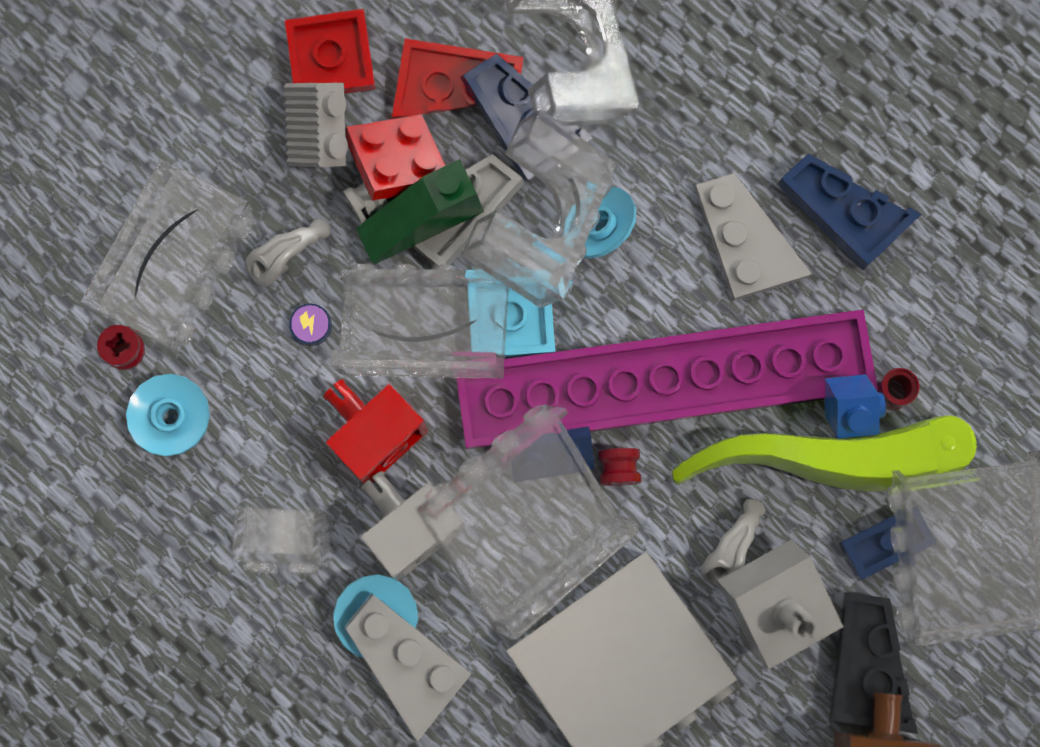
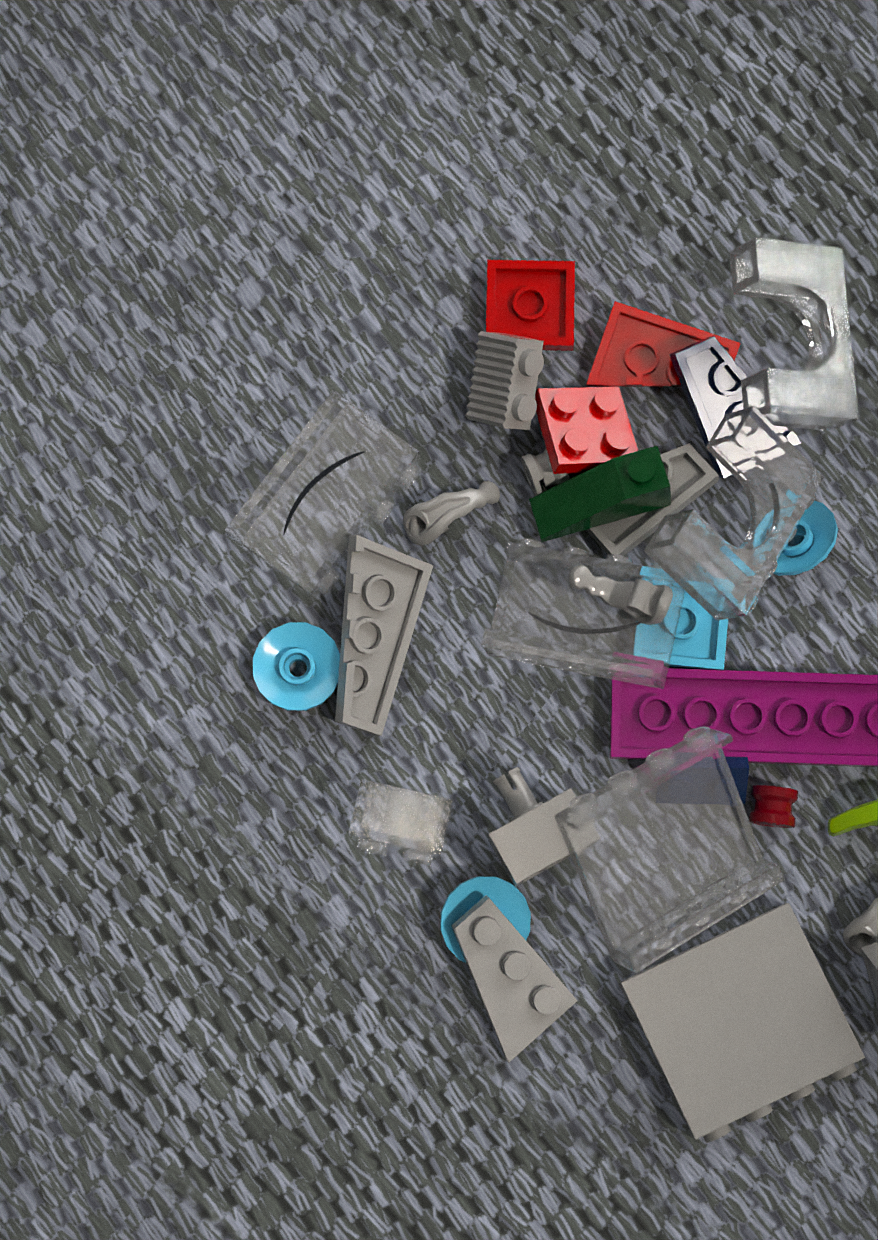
camera: 15 degrees right, 0 degrees up
(130, 350) = (263, 596): dark red wheel -> none
(235, 359) = (378, 622): none -> light grey wing
(310, 324) = (463, 594): medium lavender tile -> none
(374, 432) = (517, 723): red brick -> none
(465, 300) = (639, 599): none -> light grey piece

